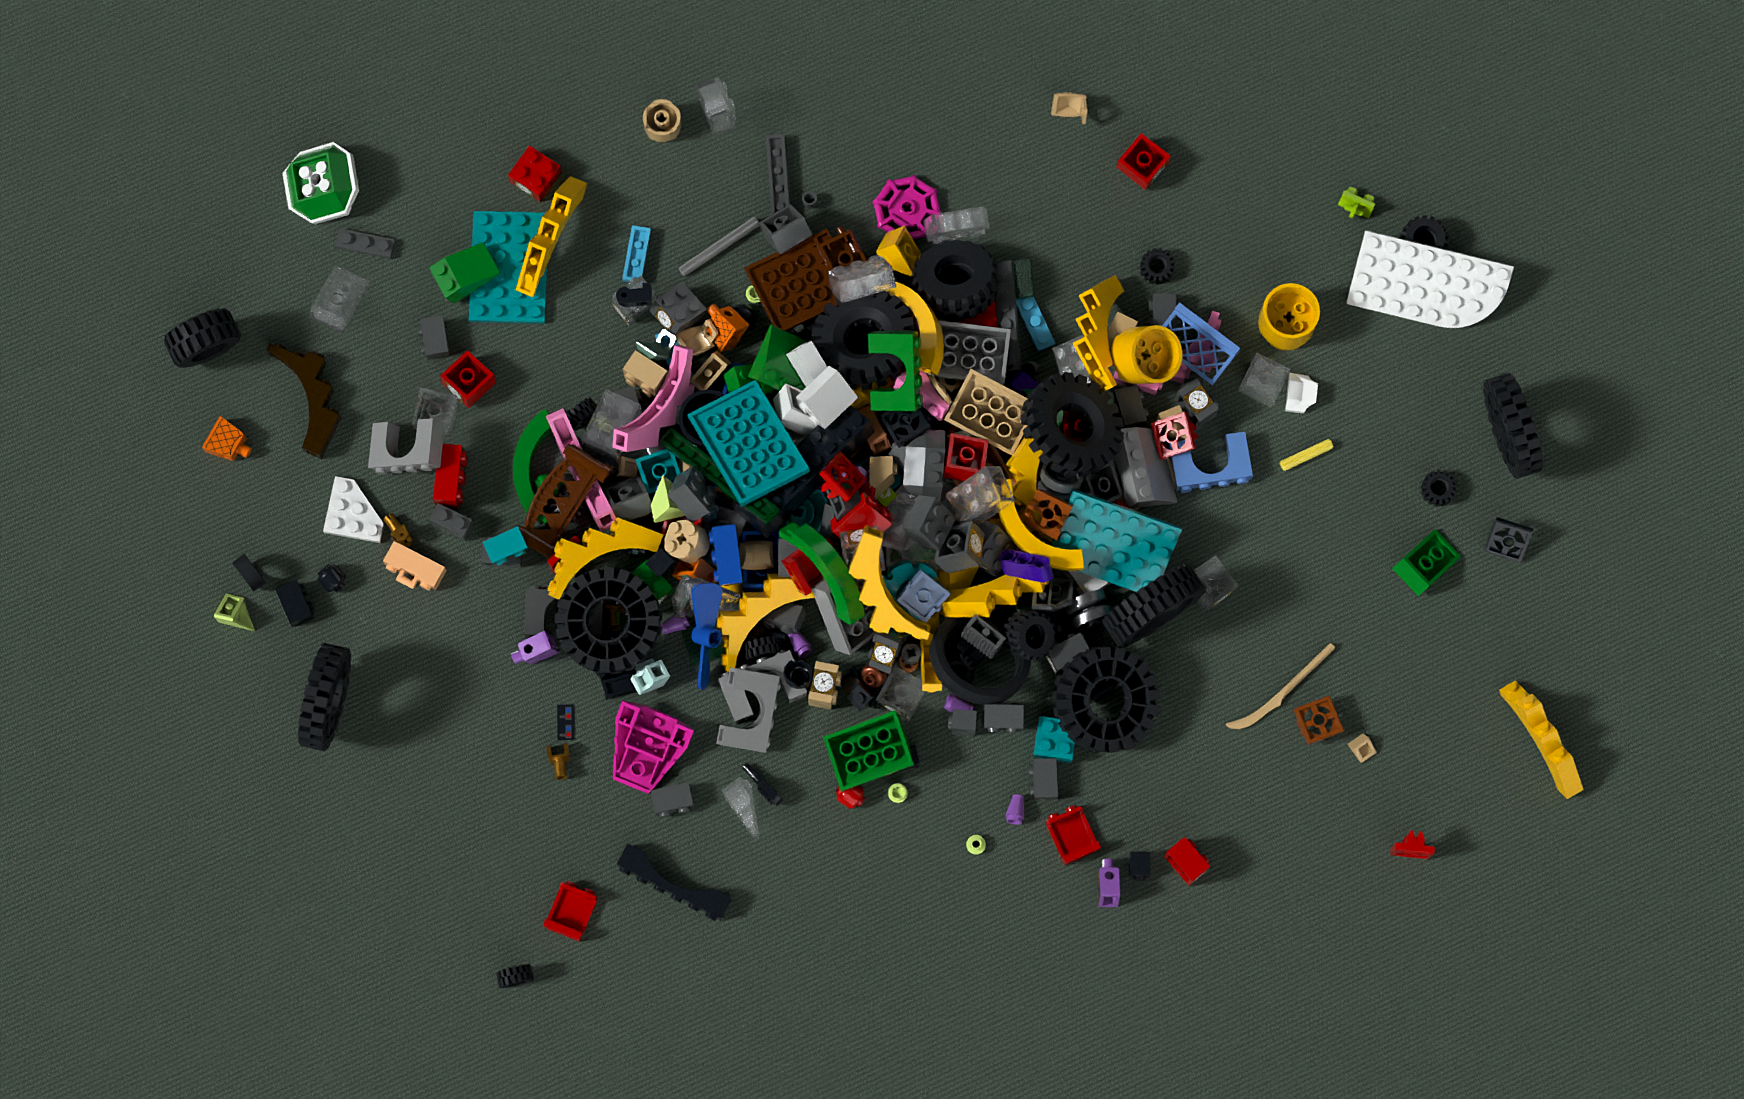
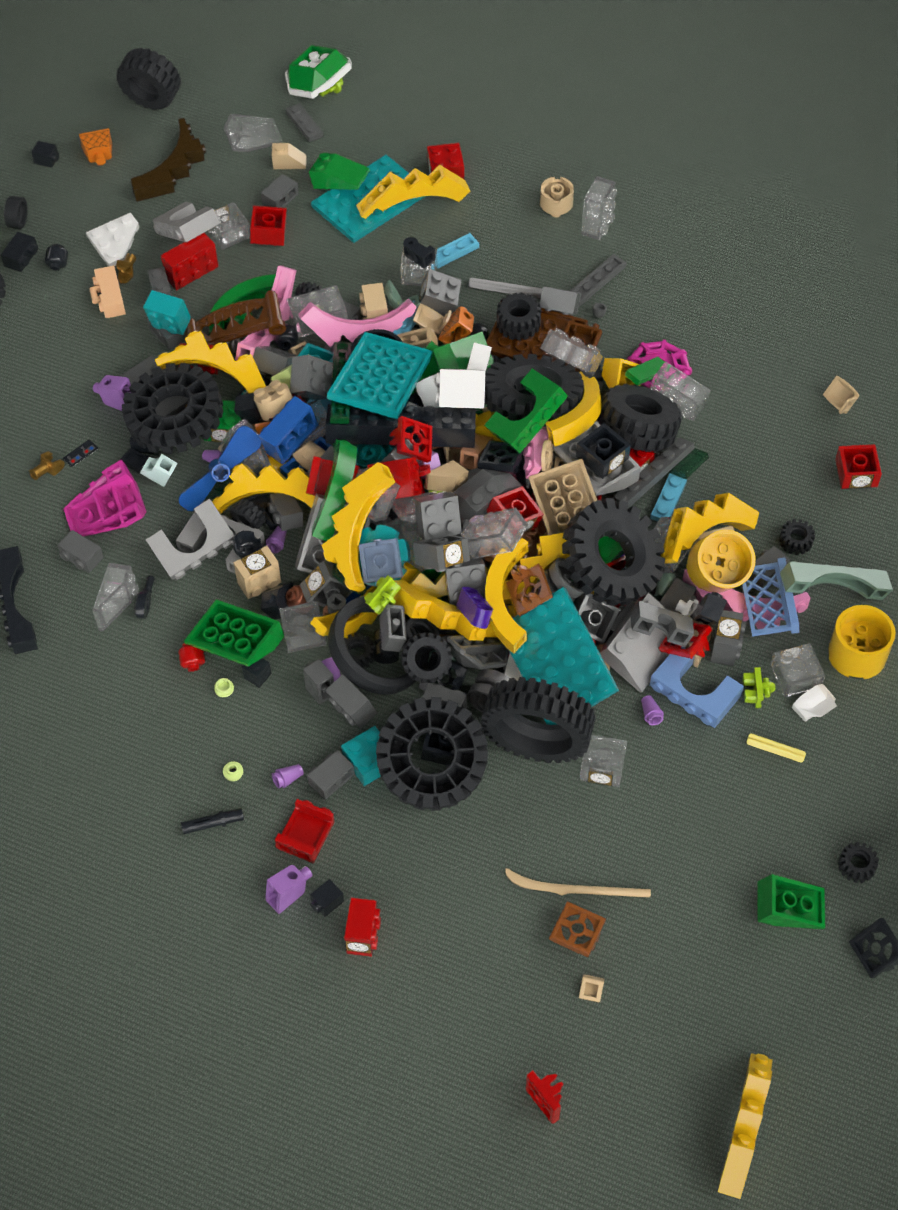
camera: 50 degrees right, 20 degrees down
(193, 491) = (45, 154): none -> black brick
(398, 294) = (287, 157): none -> tan slope
(780, 265) = (522, 306): none -> black tyre
(915, 229) = (644, 371): none -> green tile
(956, 620) = (383, 595): none -> lime hips
(978, 346) = (603, 450): none -> black brick
(1006, 888) = (221, 818): none -> black pin
(1150, 411) = (687, 608): none -> white piece
(1166, 436) = (676, 626): none -> dark grey arch
(1172, 400) = (709, 609): none -> black slope
(1200, 511) = (651, 711): none -> medium lavender cone
(1244, 261) = (867, 582): none -> sand green arch
(1256, 427) = (756, 695): none -> lime hips

